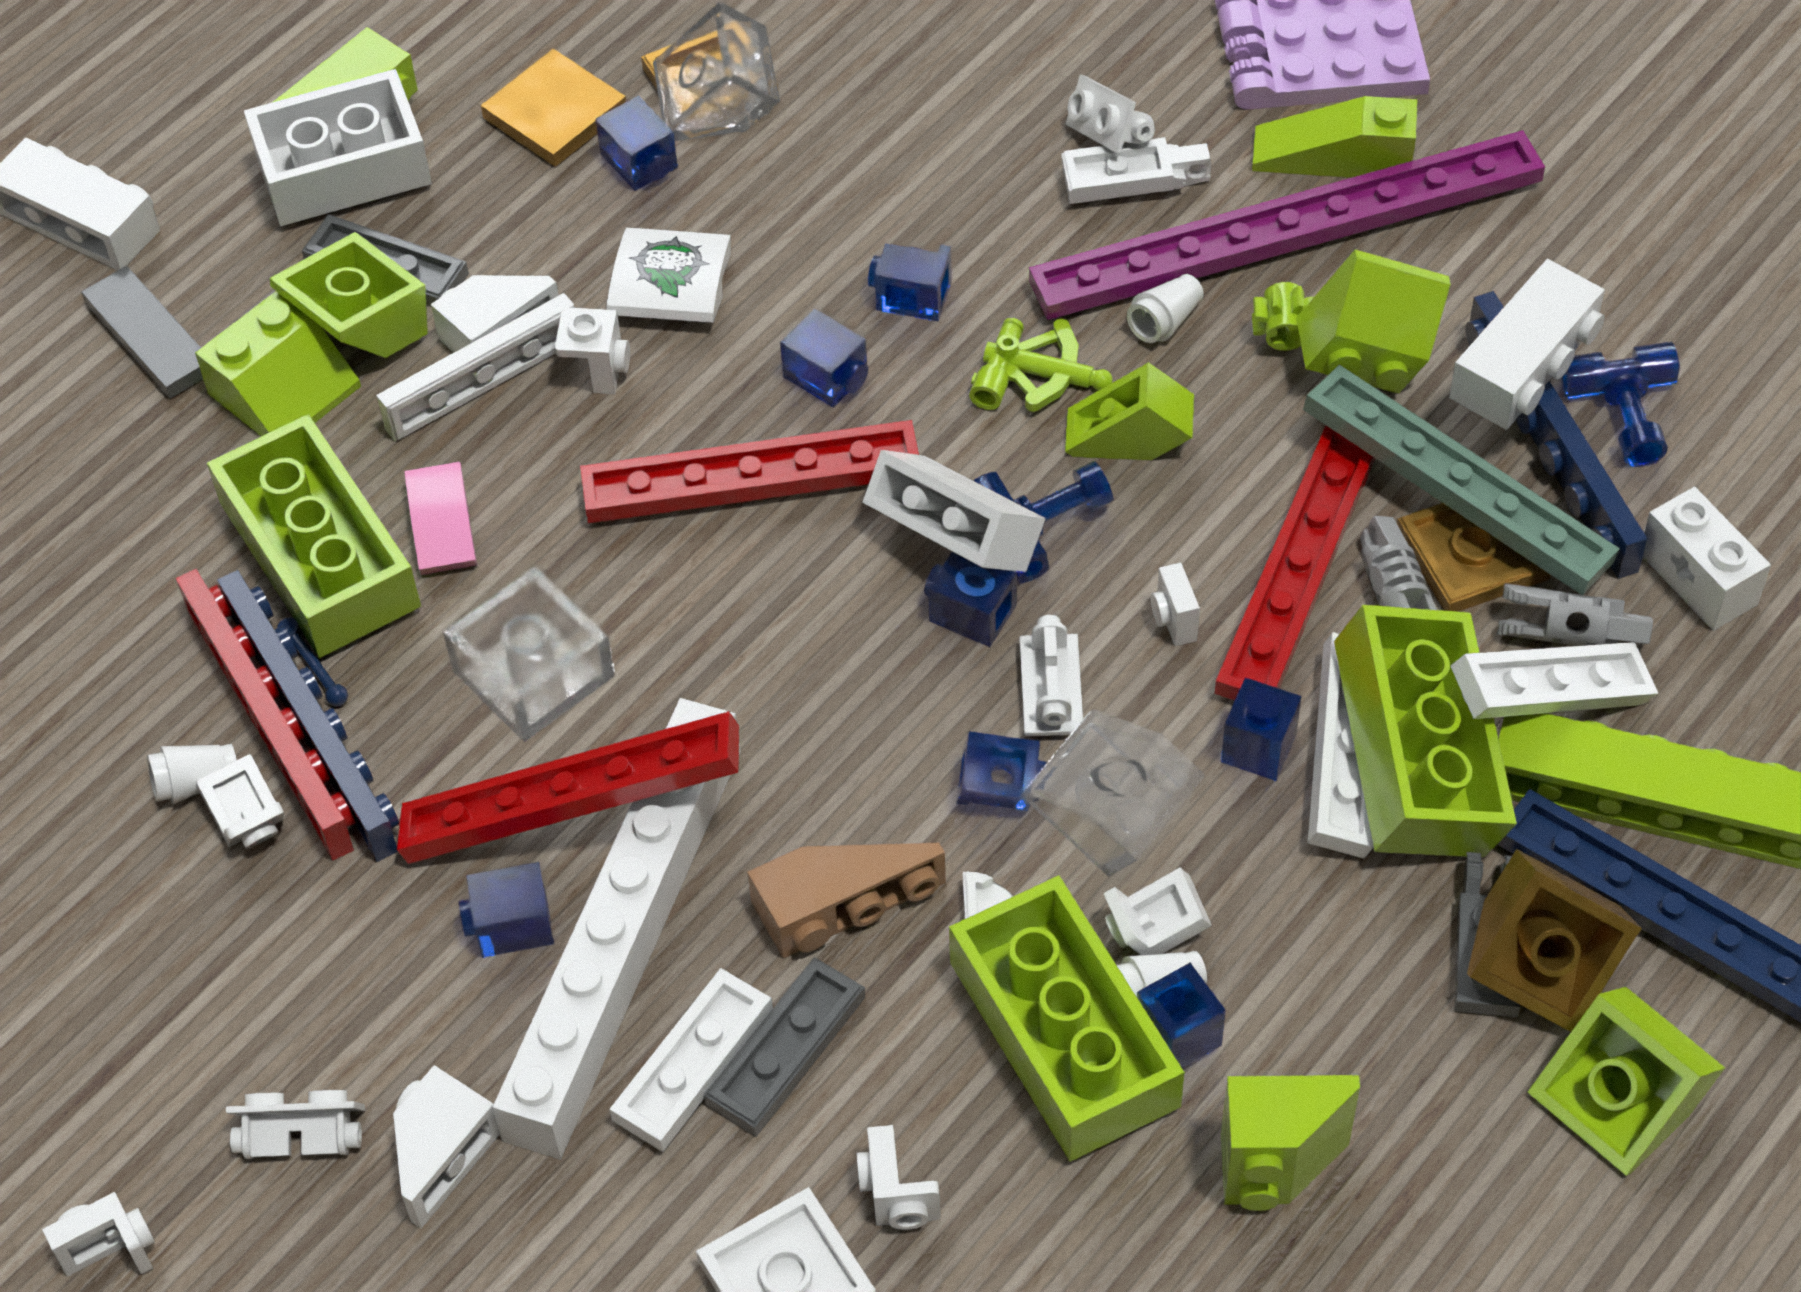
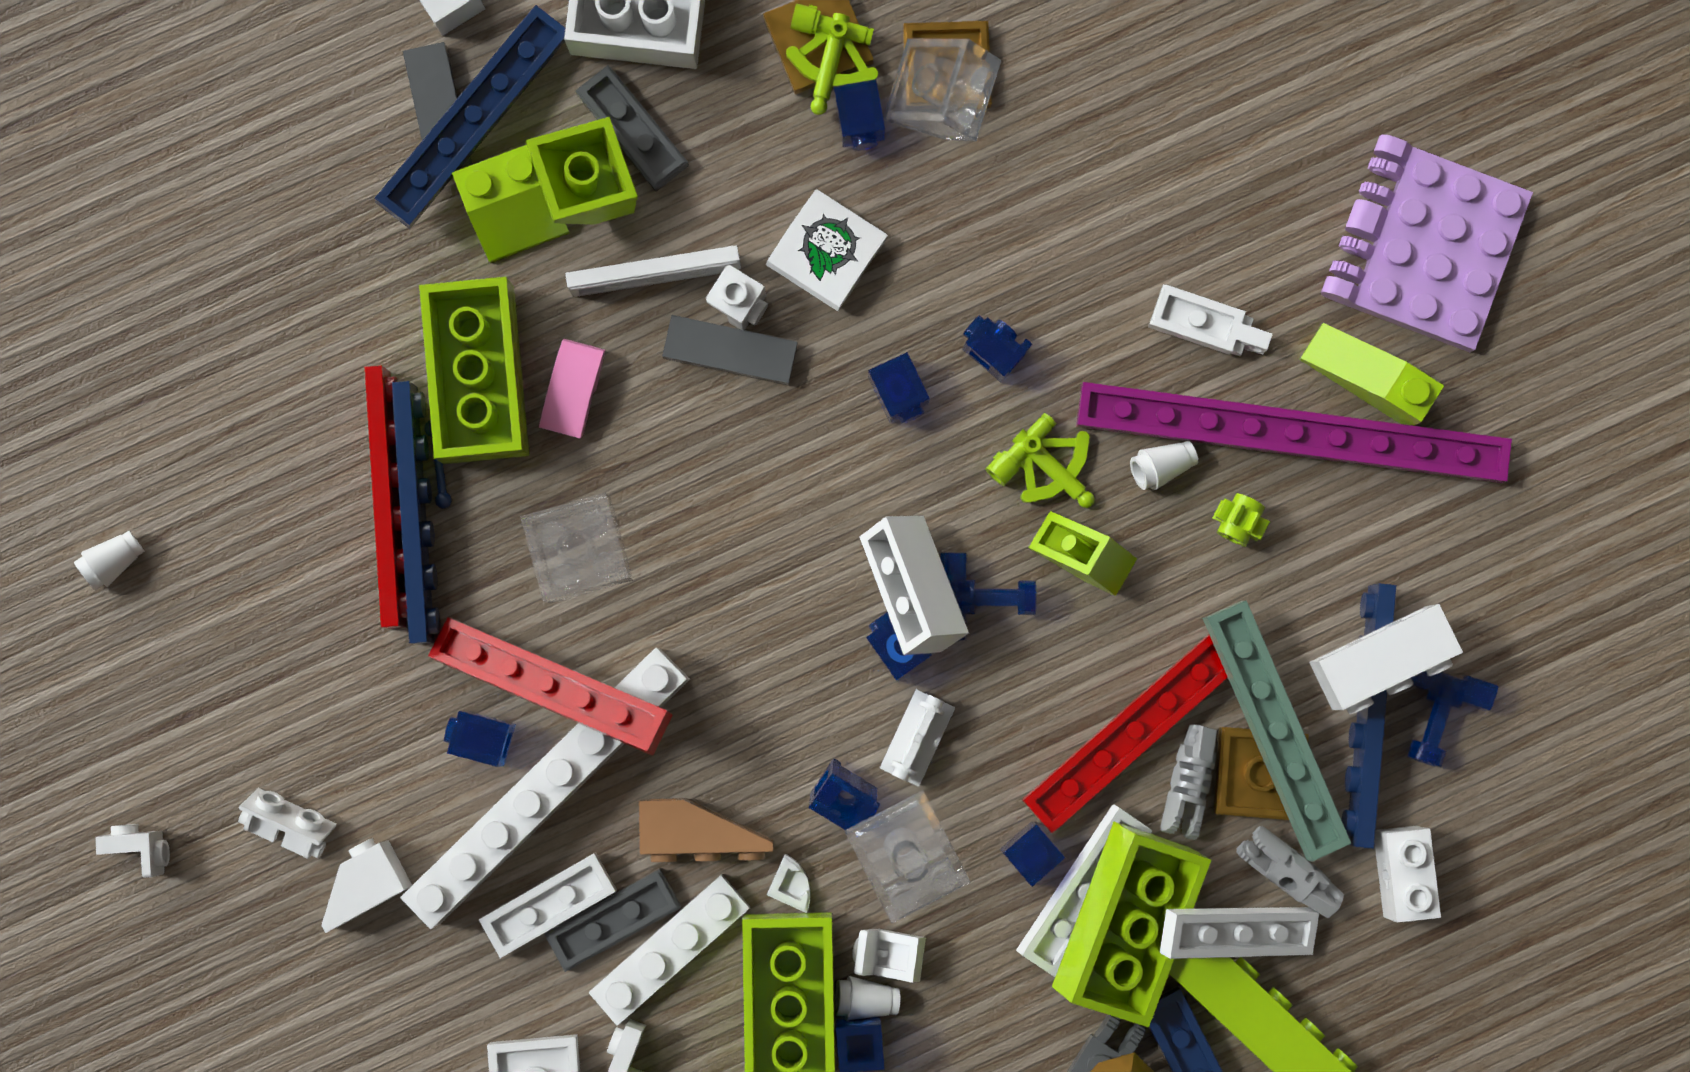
camera: 20 degrees right, 30 degrees up
(178, 768) = (321, 519): white cone -> none
(191, 310) = (471, 117): none -> dark blue plate
(241, 803) = (343, 567): white bracket -> none
(487, 304) = (682, 226): white slope -> none
(573, 83) = (836, 32): none -> lime piece
(609, 410) = (730, 350): none -> dark grey tile
(740, 471) = (800, 459): plate -> none
(875, 1047) = (669, 949): none -> white plate
(1107, 116) = (1210, 269): white hinge -> none
(1176, 605) = (1030, 723): white plate -> none
(1374, 320) = (1288, 578): lime slope -> none

